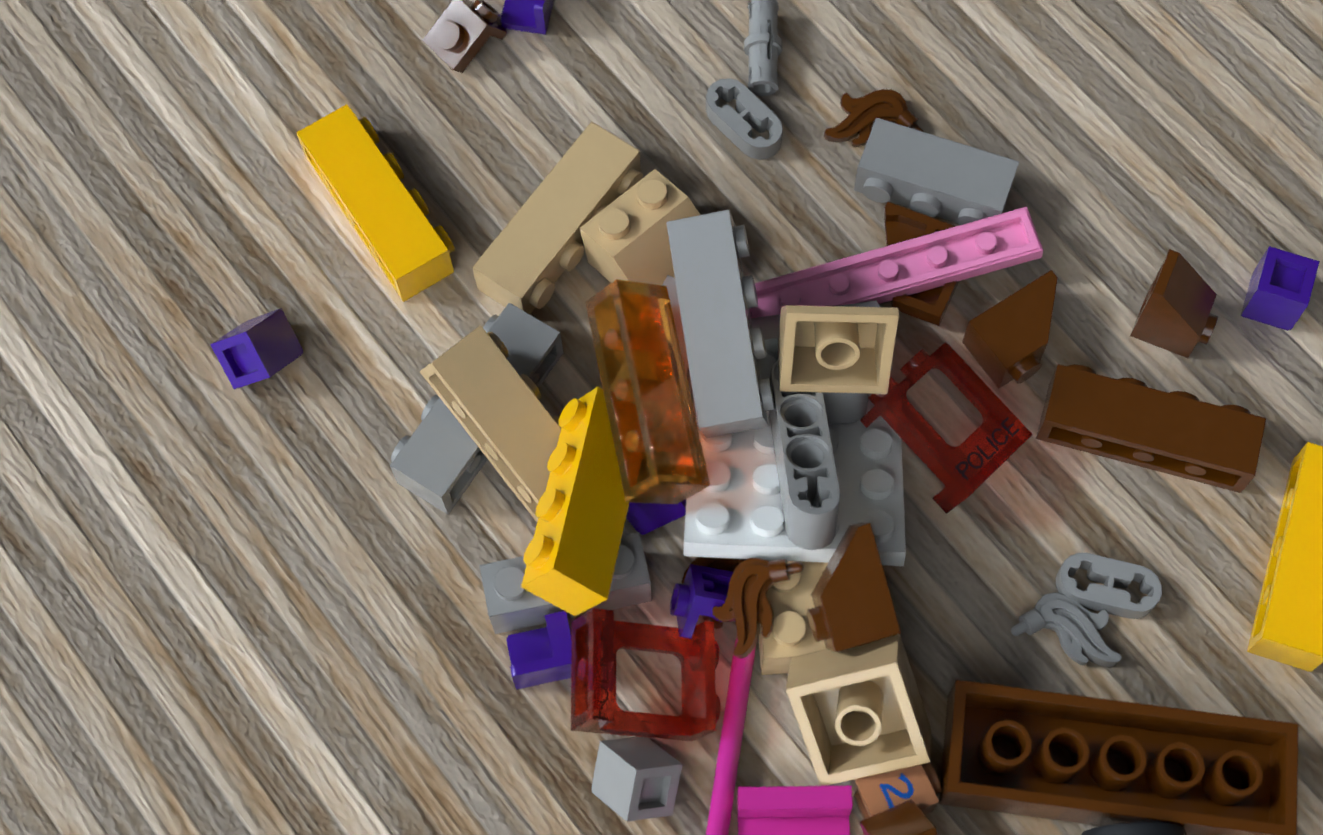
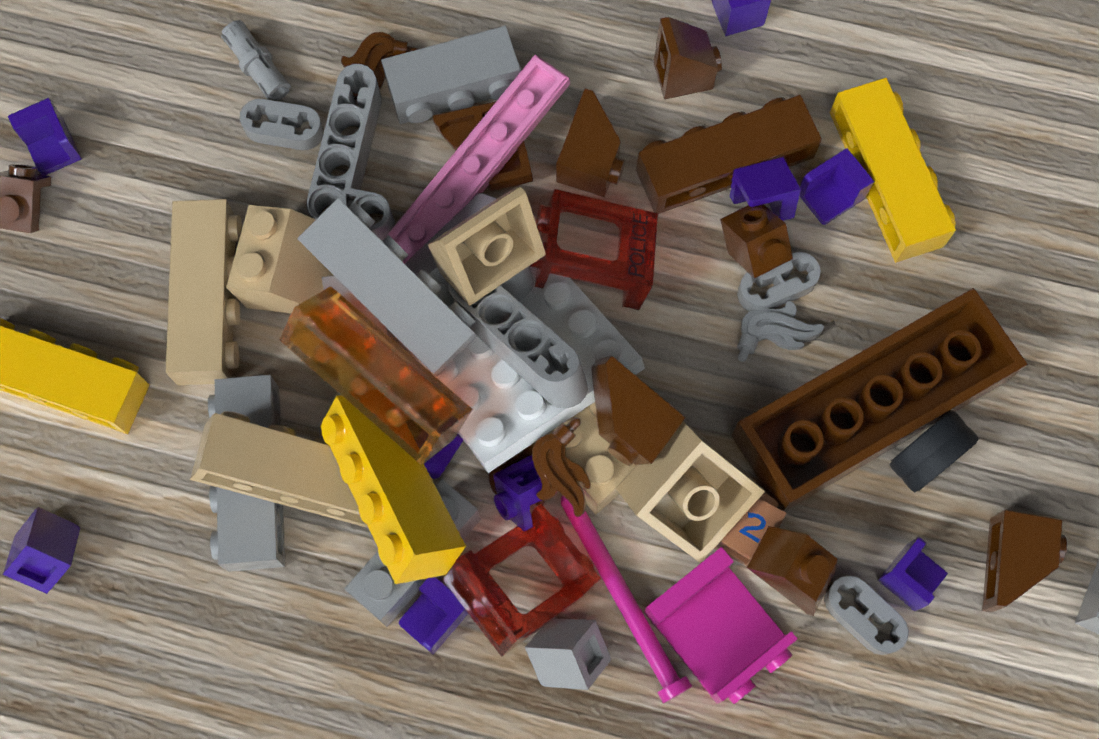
camera: 40 degrees left, 5 degrees up
(787, 182) = (350, 149): none -> light grey beam
(1114, 526) = (756, 239): none -> reddish brown brick
(1165, 480) = (767, 183): none -> dark purple panel
(1237, 533) = (835, 186): none -> dark purple panel

